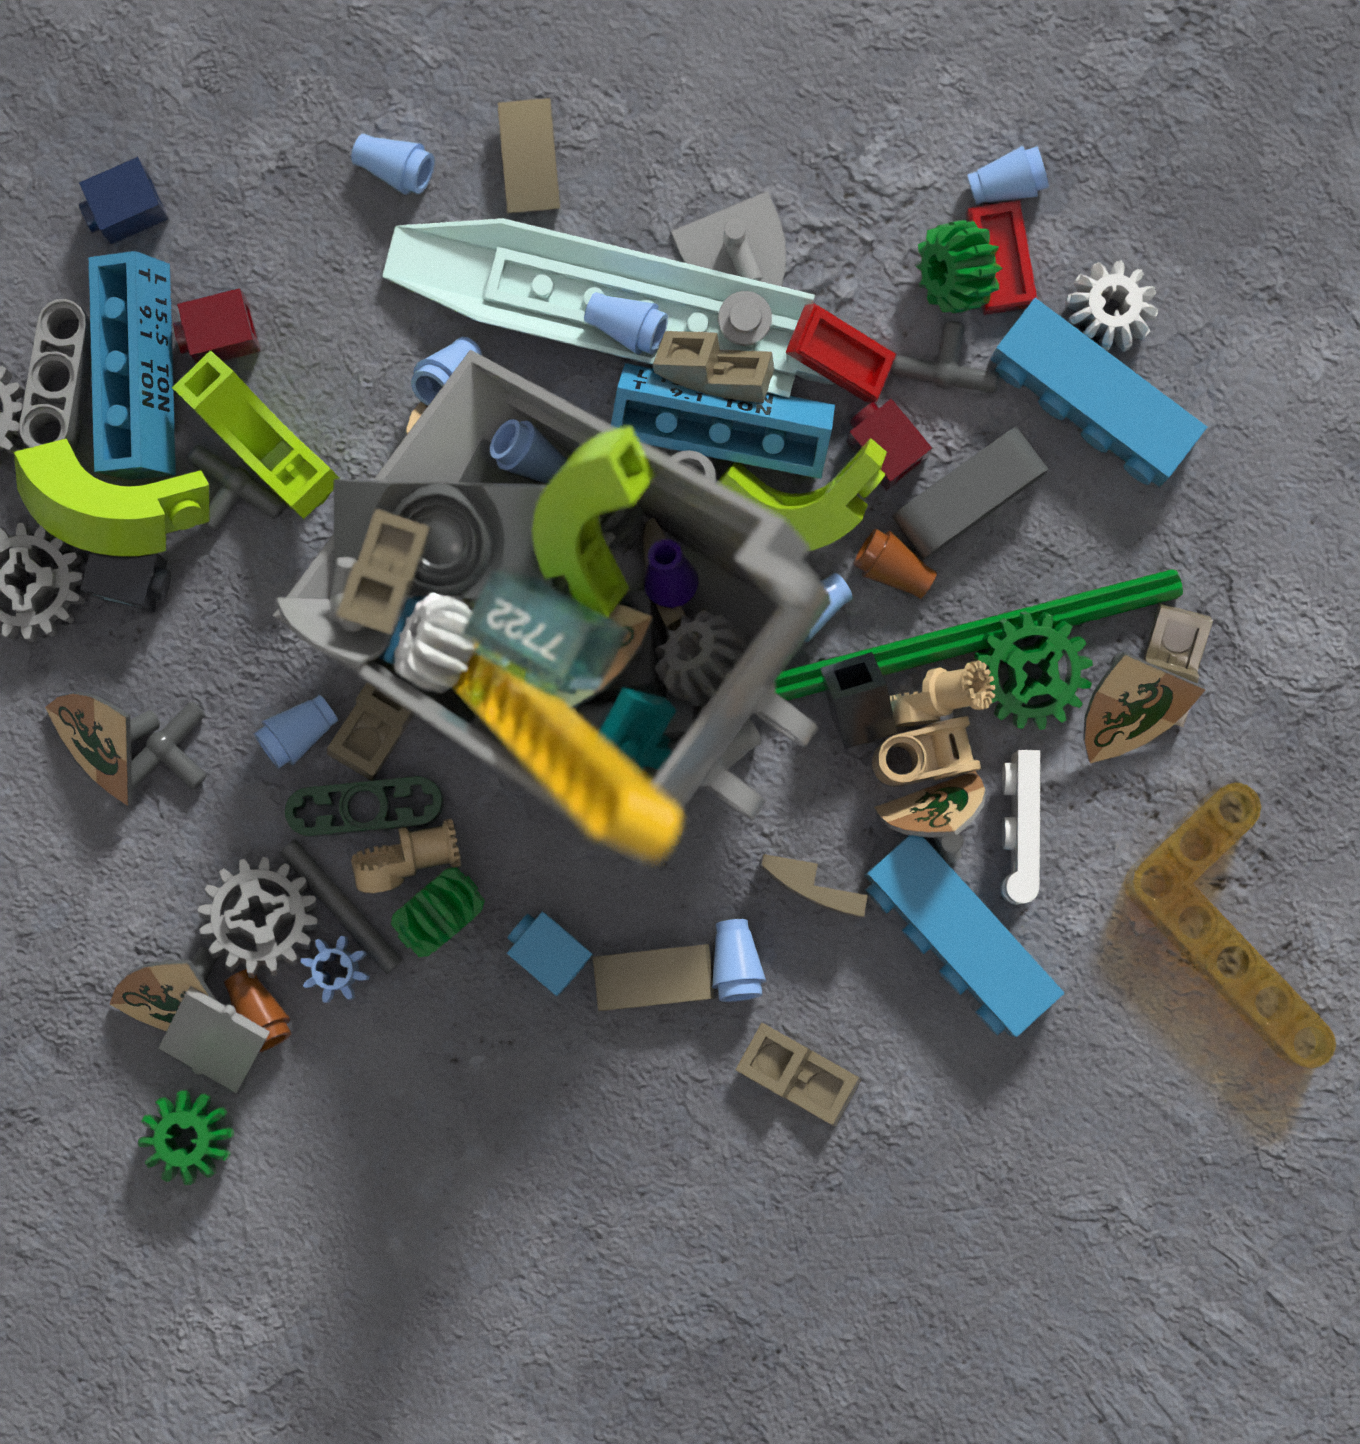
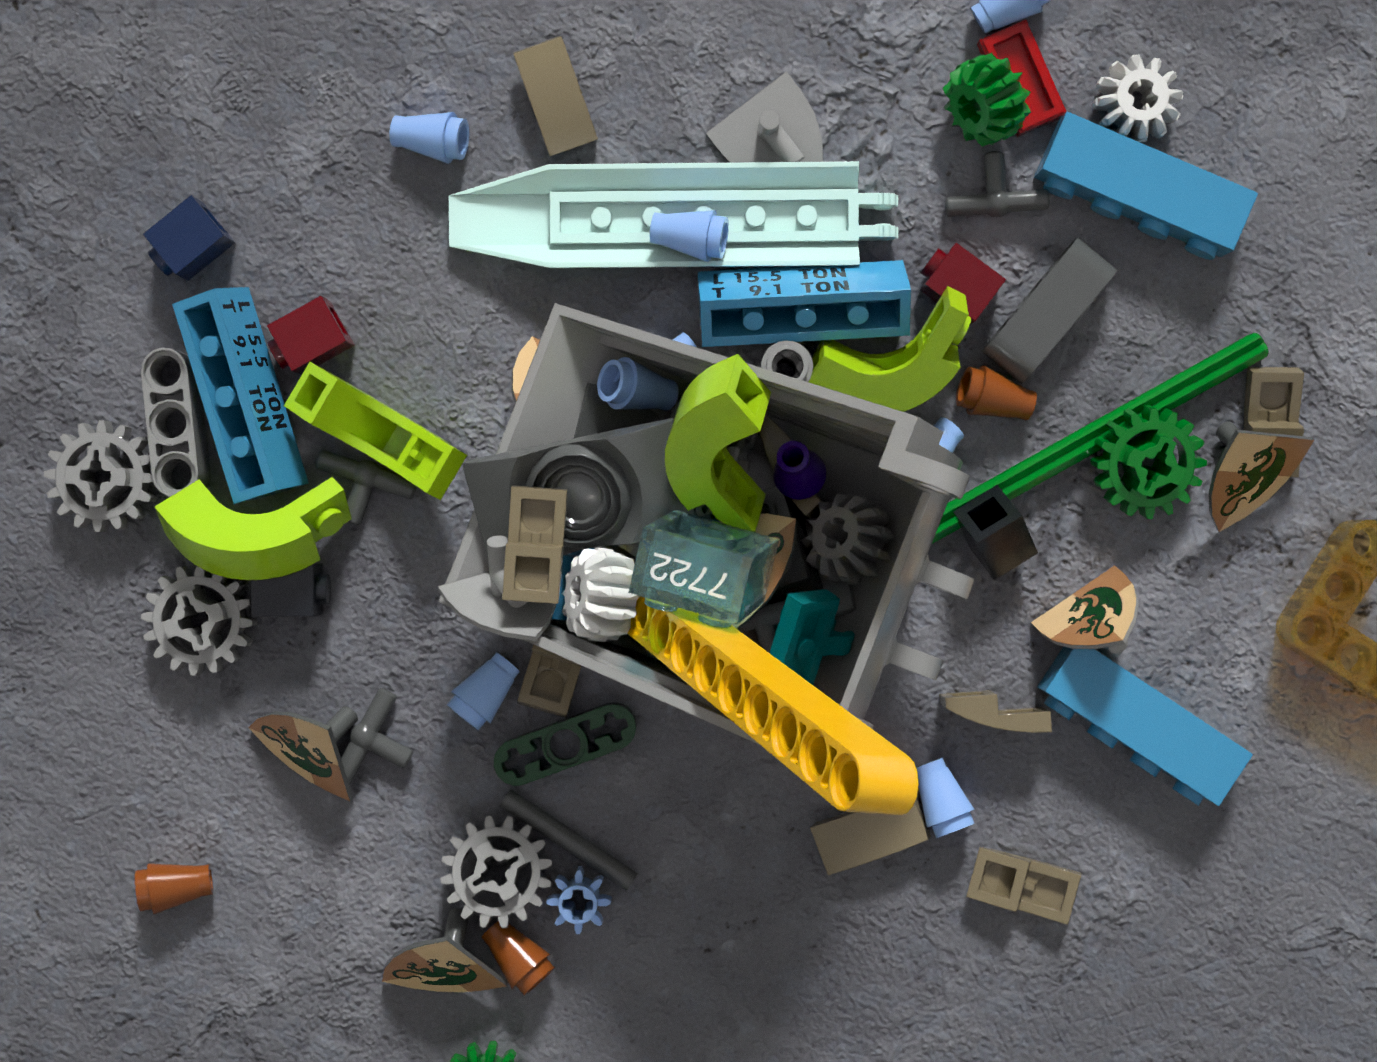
camera: 15 degrees left, 5 degrees up
(213, 1039) = (487, 994): light grey piece -> none
(418, 849) = (615, 783): tan connector -> none
(436, 369) = (529, 321): light blue cone -> none
(437, 912) = (660, 826): green gear -> none
(547, 952) = (769, 835): dark azure brick -> none
(700, 365) = (768, 257): dark tan slope -> none
(745, 318) = (800, 201): light grey plate -> none
(840, 353) = (896, 210): red tile -> none
(935, 750) = (1077, 561): tan piece -> none
(943, 693) = (1075, 504): tan connector -> none
(1022, 829) = (1175, 610): white plate -> none

